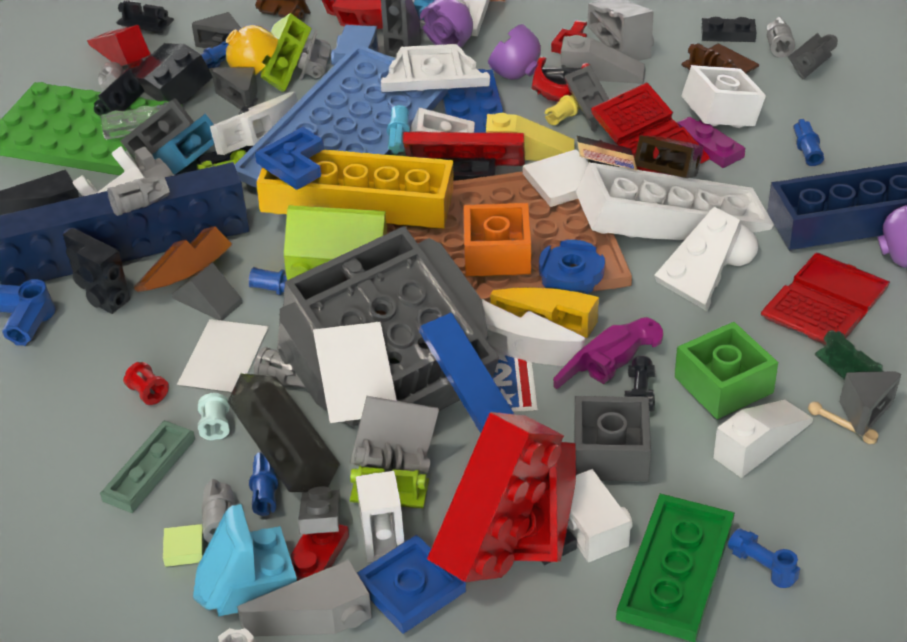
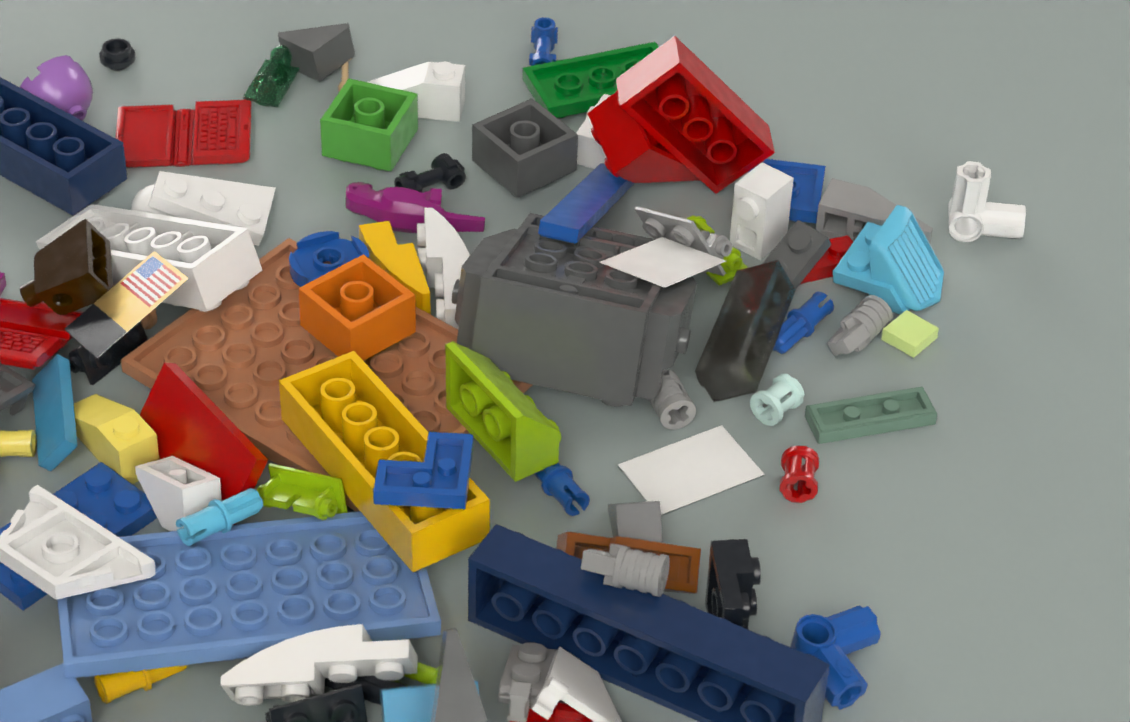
camera: 135 degrees left, 0 degrees up
(557, 176) = (175, 339): white tile -> none
(565, 127) = (54, 413): none -> dark azure tile

